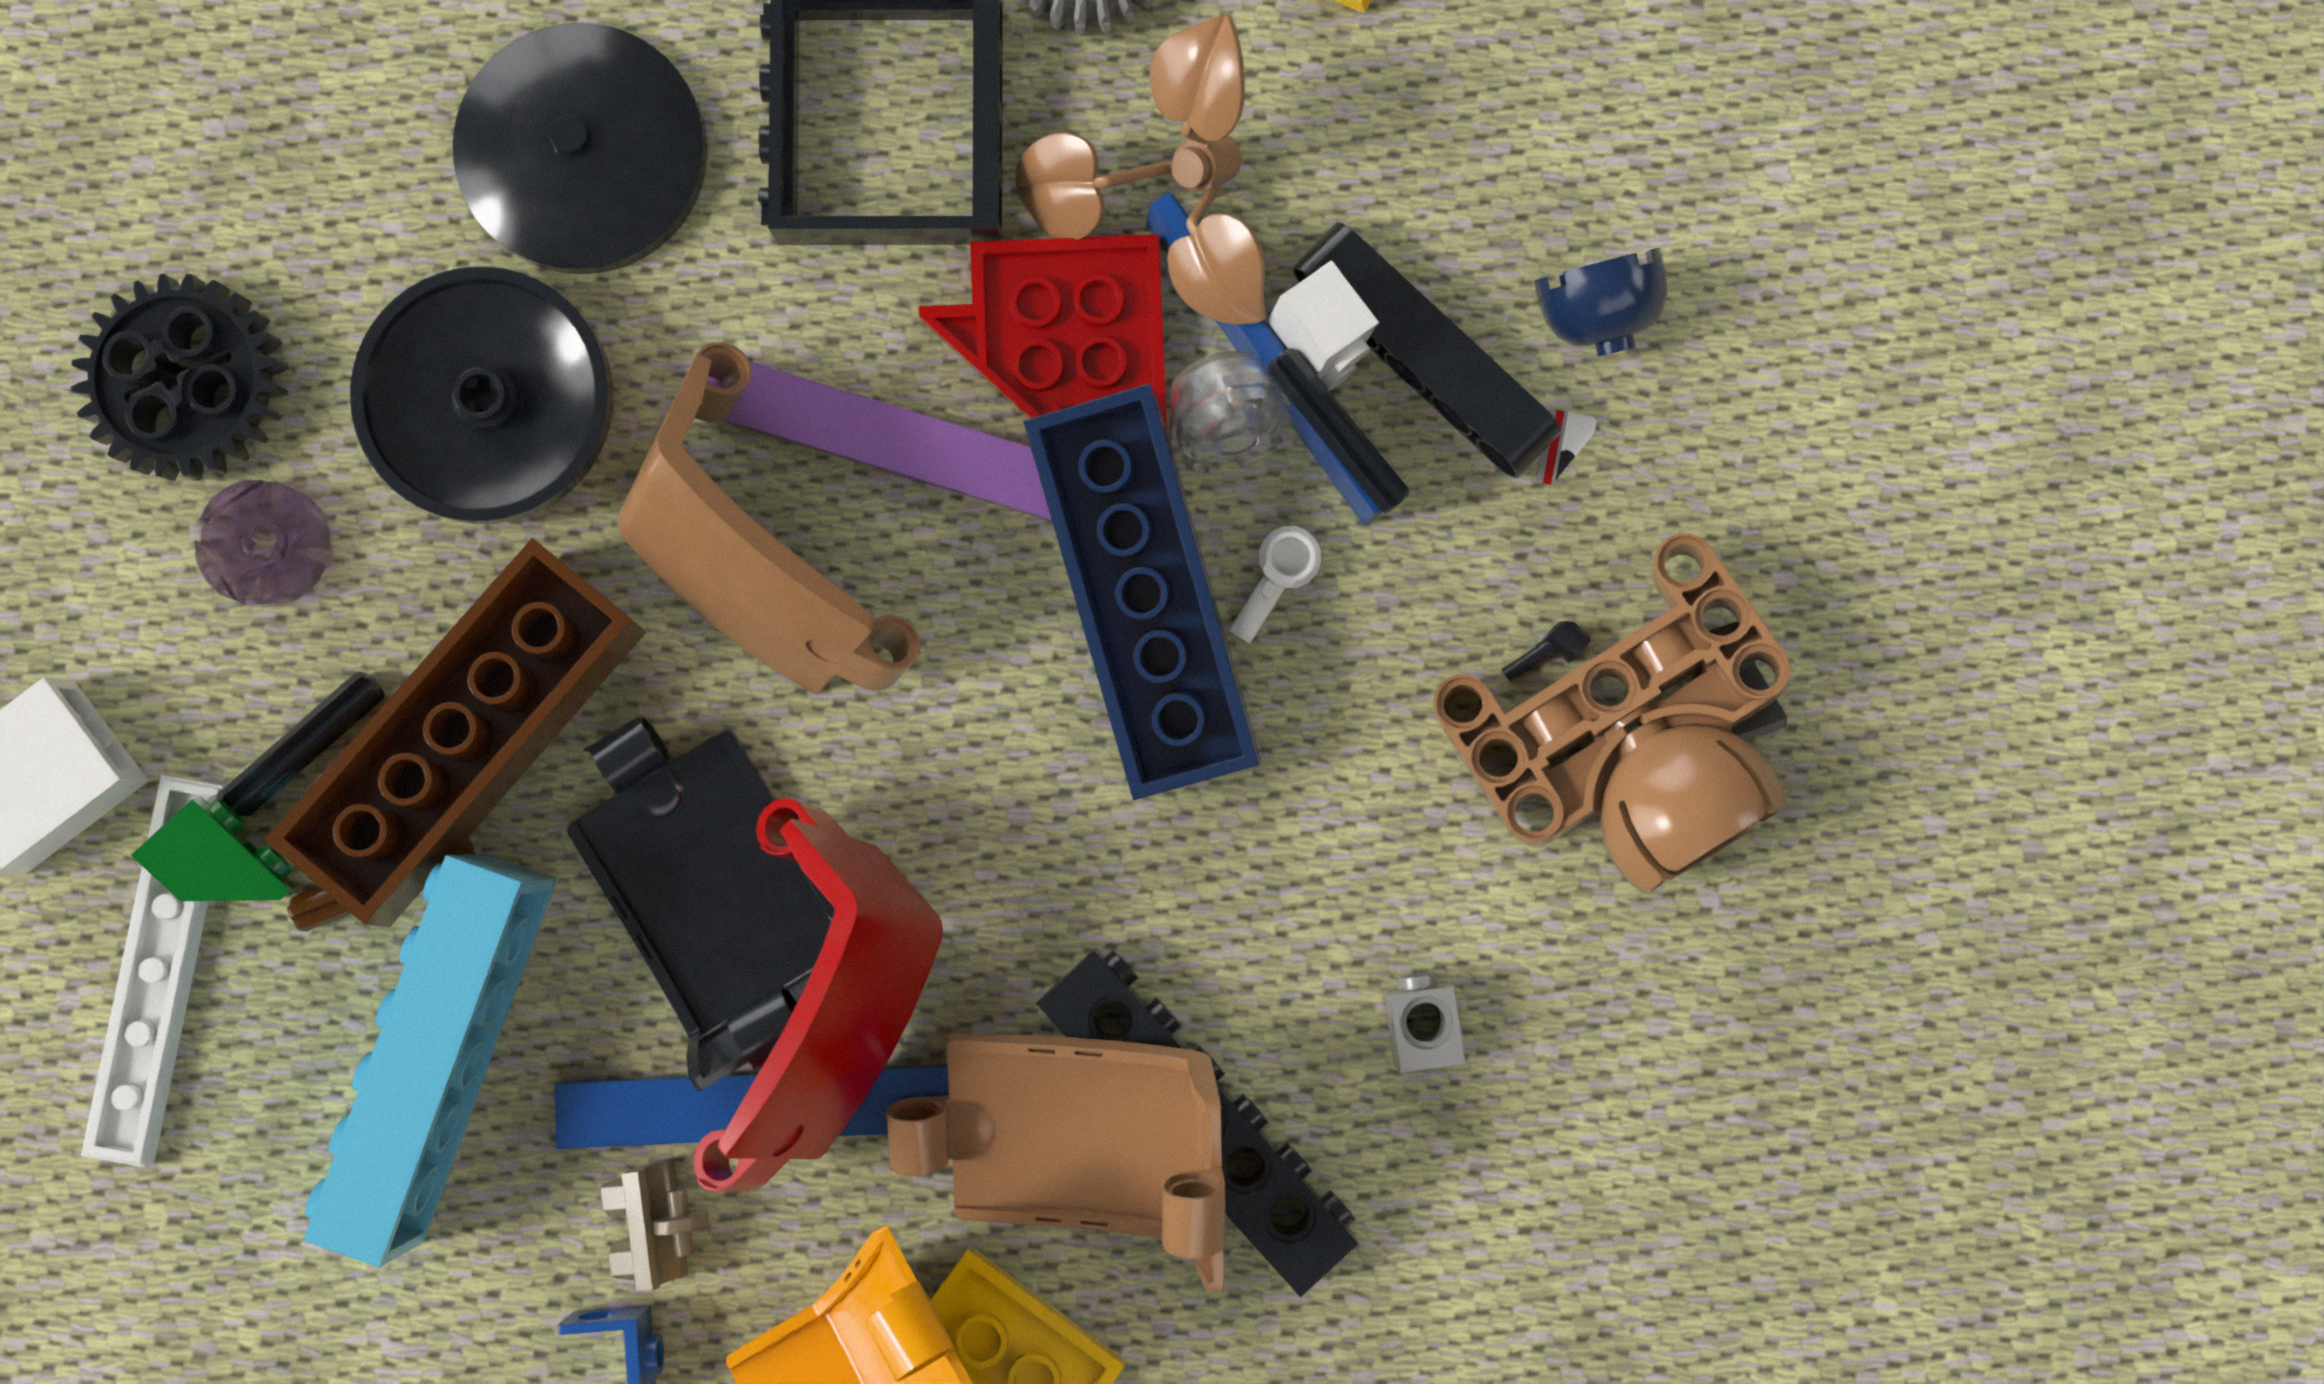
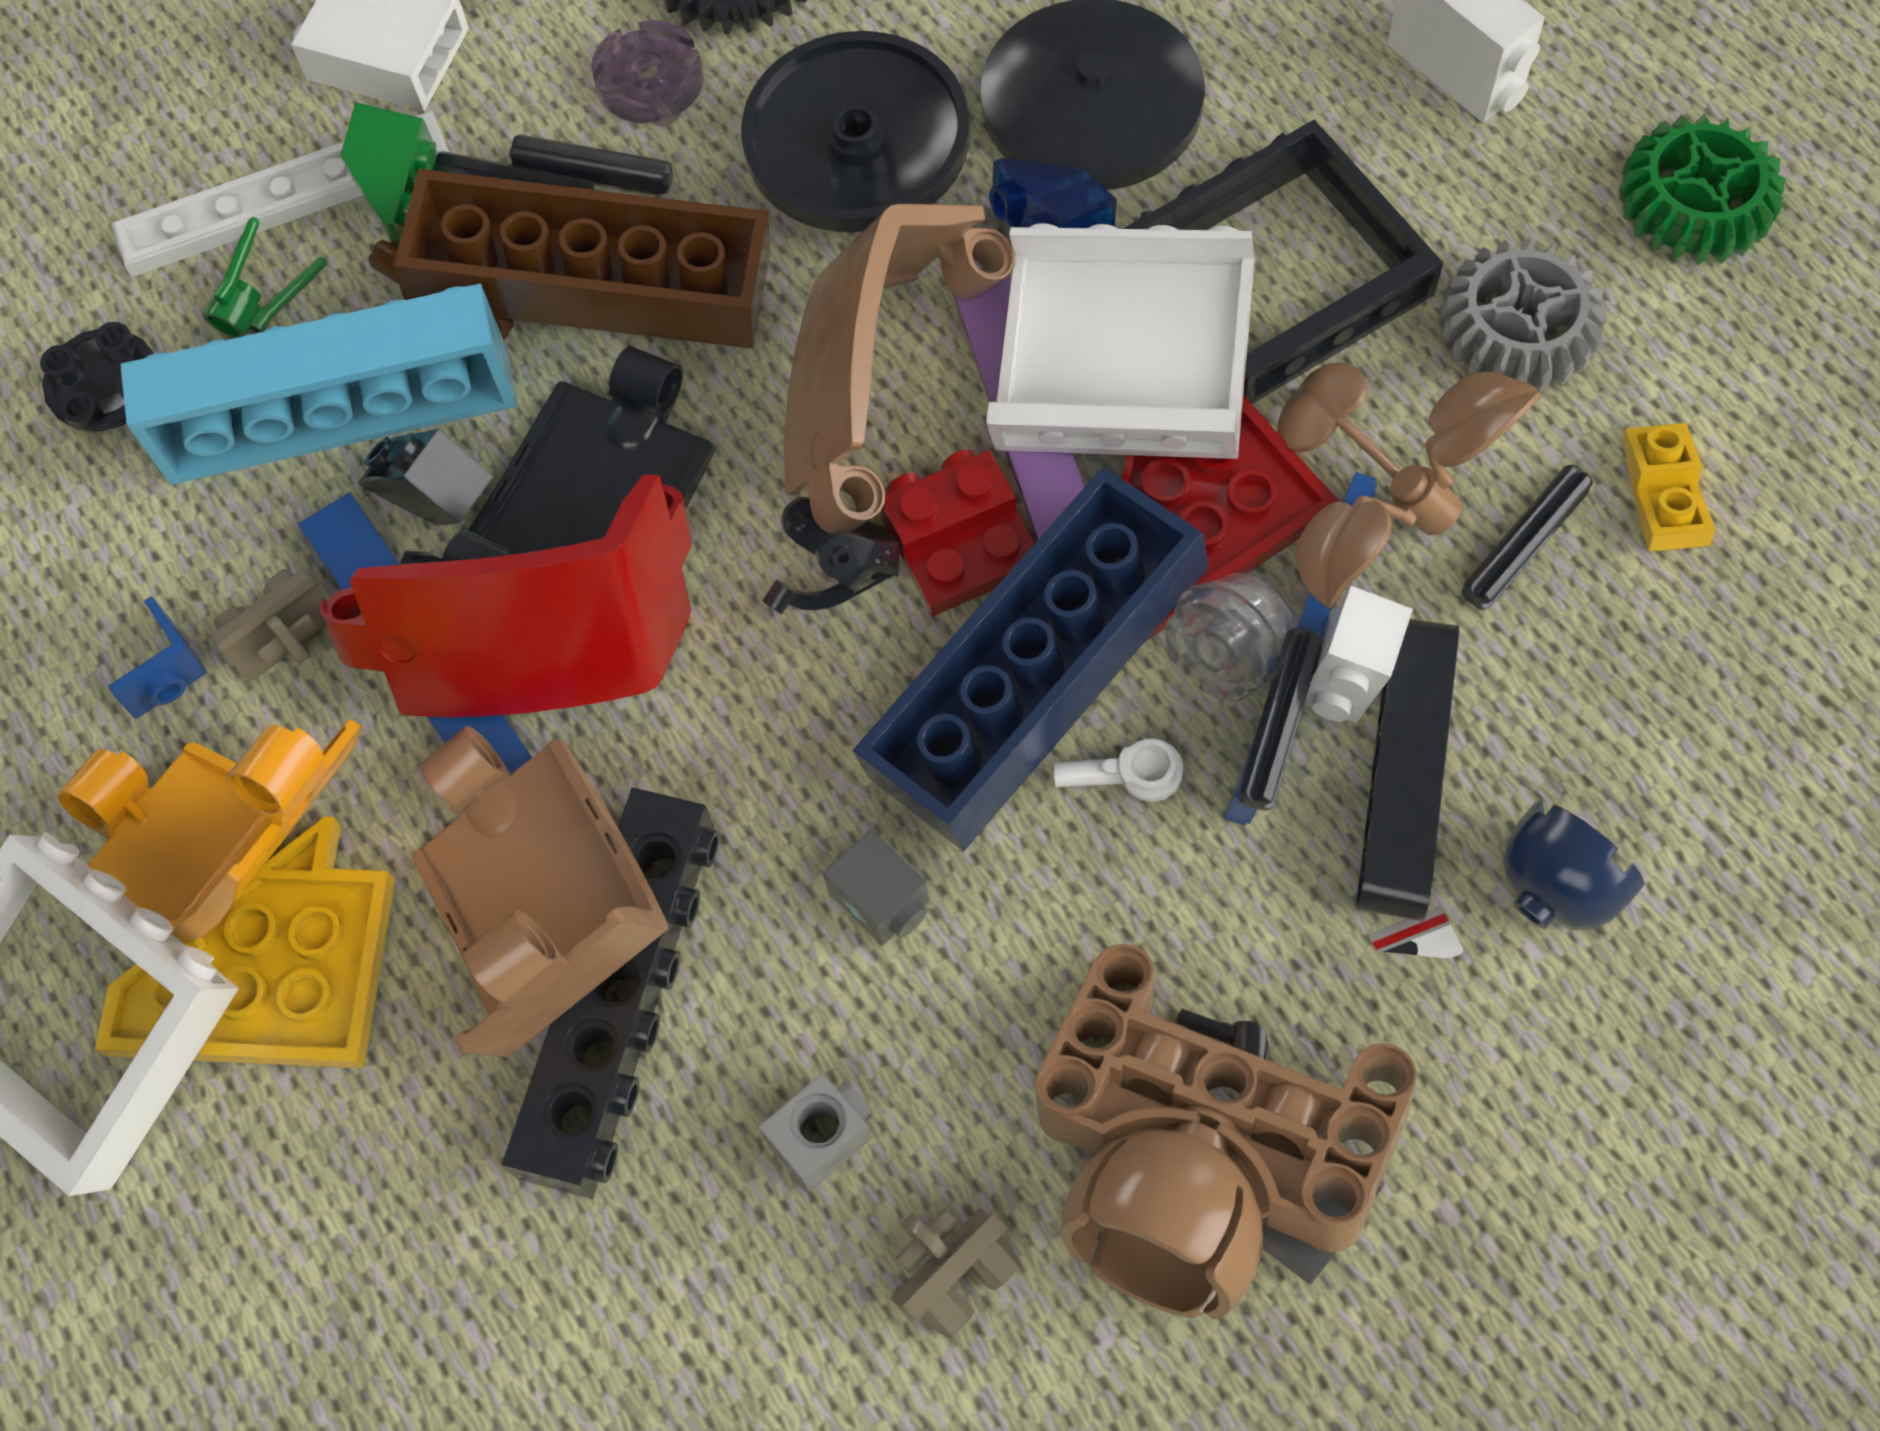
camera: 65 degrees right, 20 degrees down
(256, 1254) = (85, 376): none -> black dish
(265, 1084) = (235, 303): none -> green plant
(332, 659) = (592, 164): none -> black axle
(587, 1008) = (425, 476): none -> black slope
(694, 272) = (1048, 194): none -> clear blue slope
(889, 309) = (1125, 341): none -> white panel
(943, 692) = (852, 558): none -> black helmet
(962, 569) = (956, 529): none -> red plate
(1253, 849) = (878, 888): none -> dark grey brick
(1288, 101) = (1526, 537): none -> black axle
(1590, 987) = (974, 1246): none -> dark tan hips

